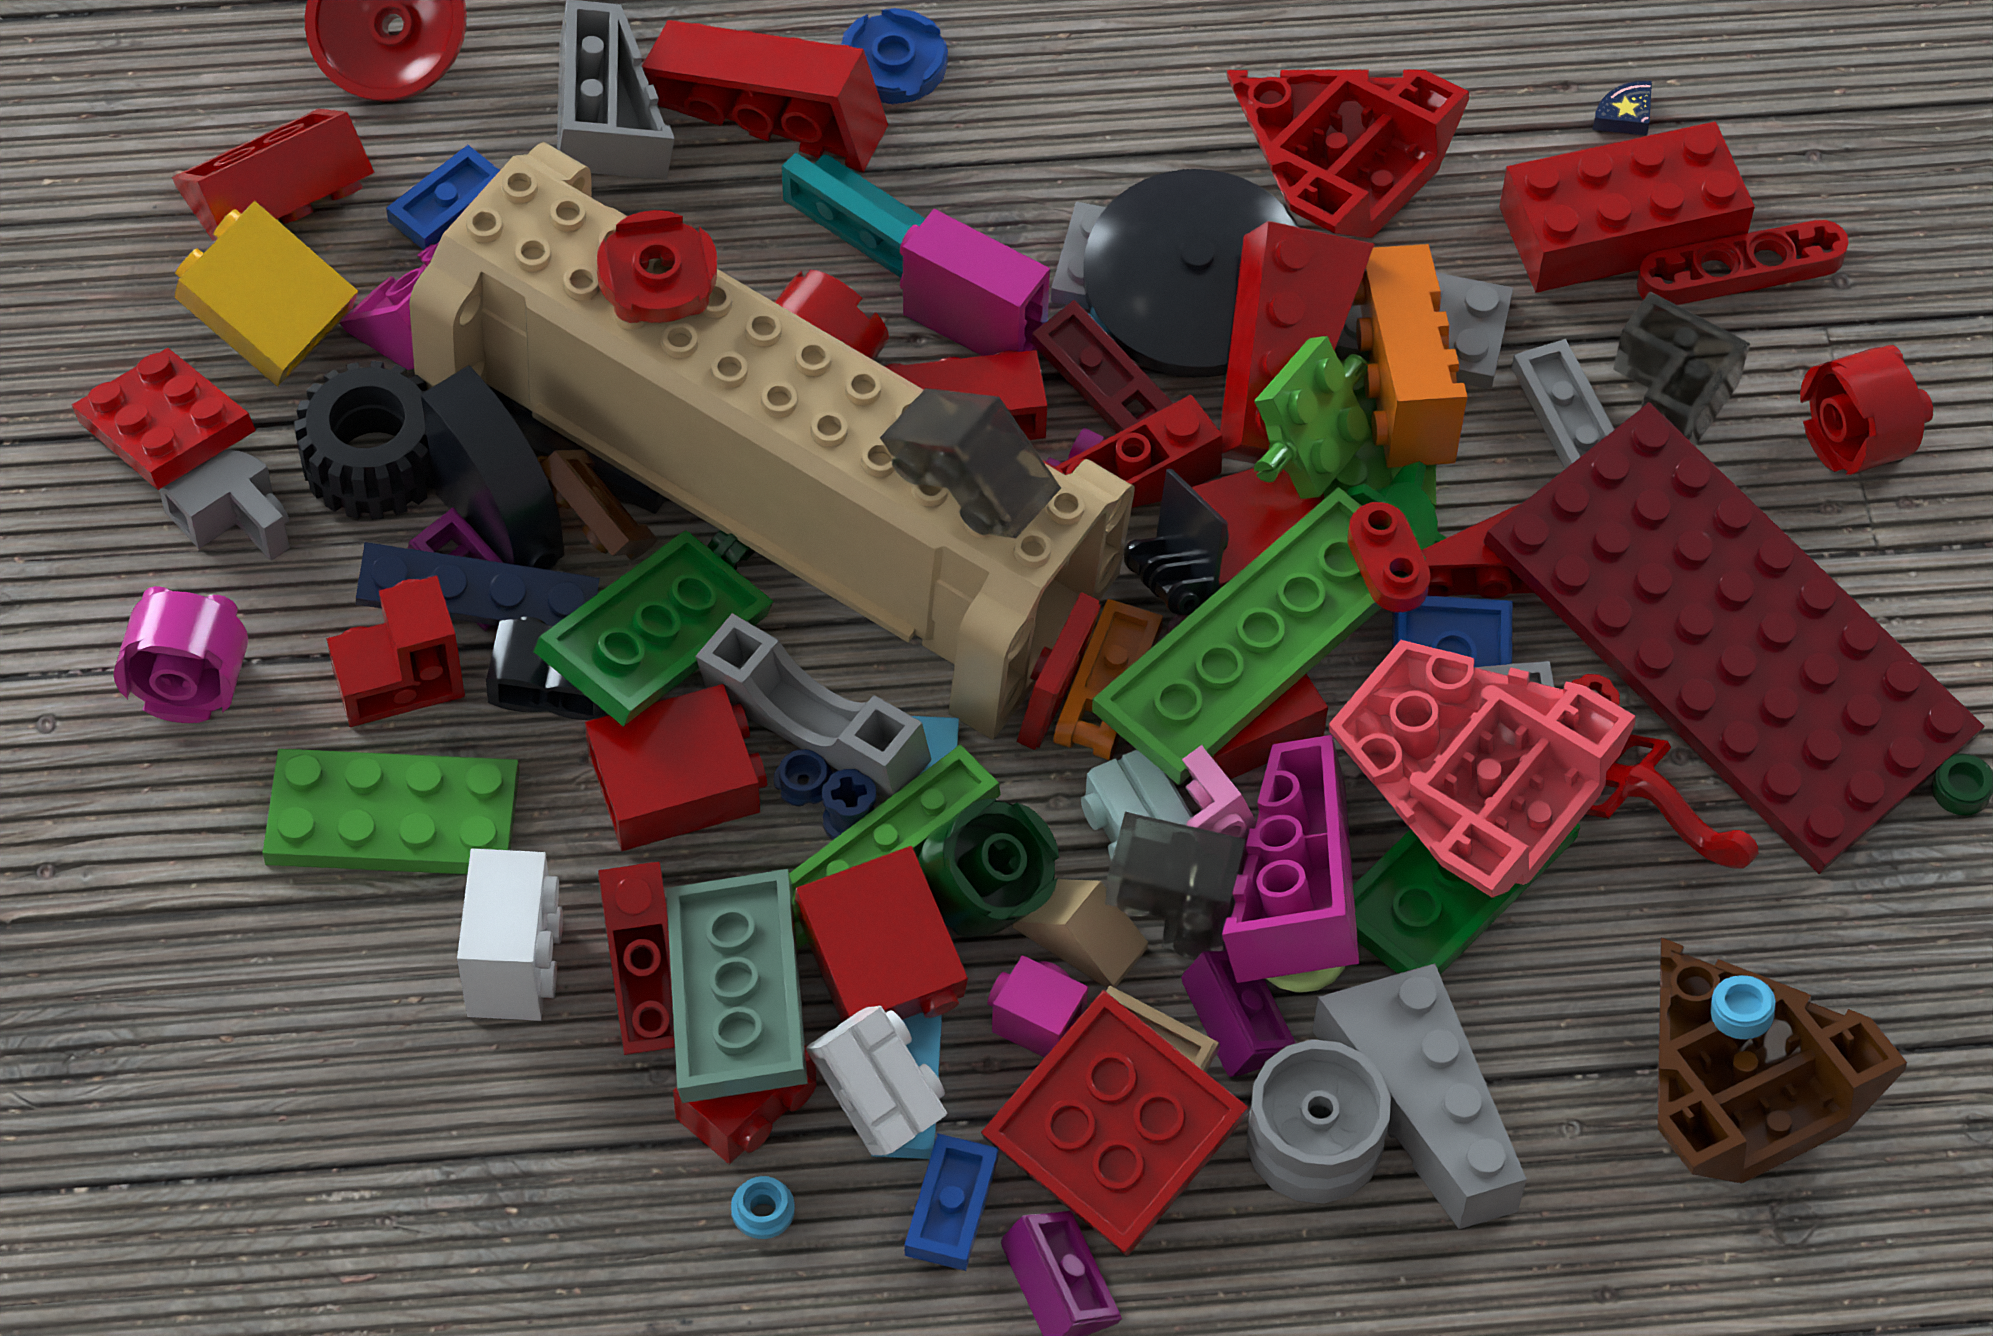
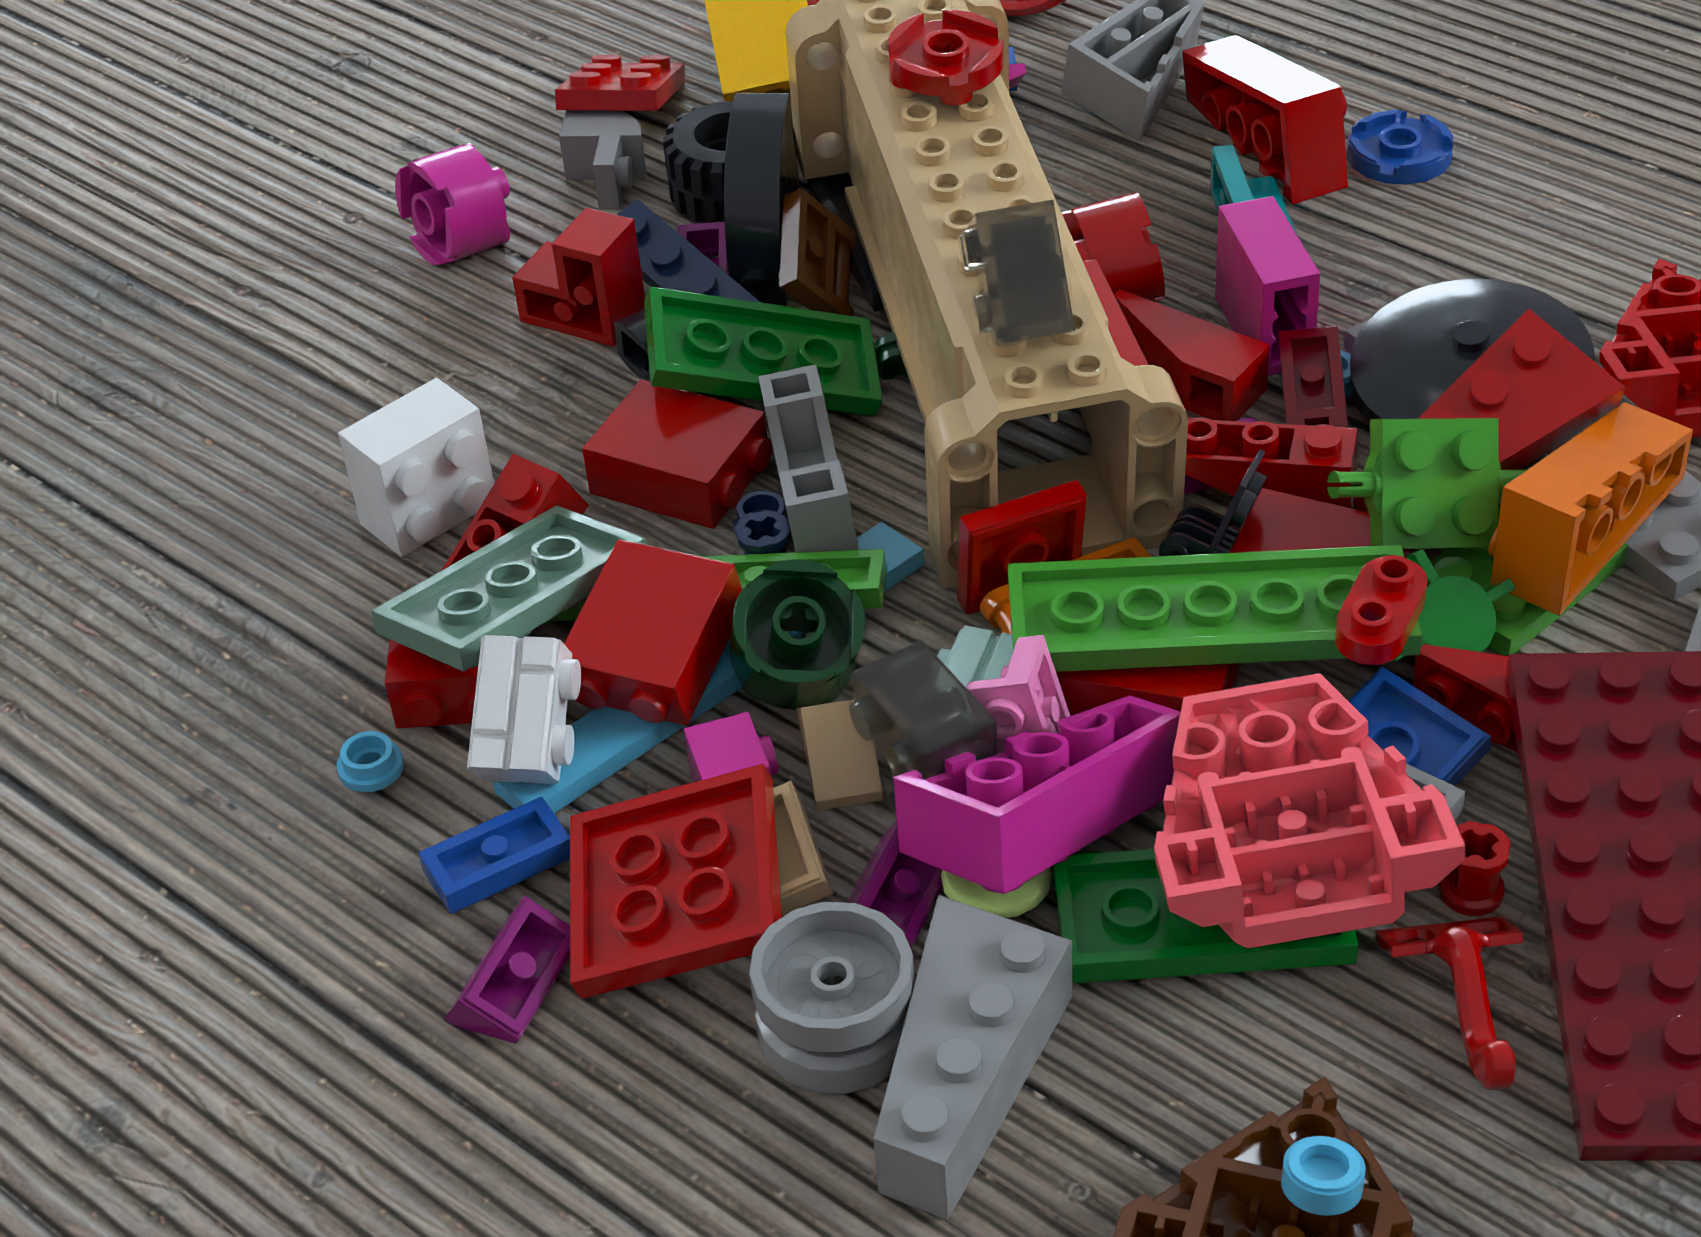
camera: 50 degrees right, 15 degrees down
(388, 810) = (510, 385): bright green plate -> none

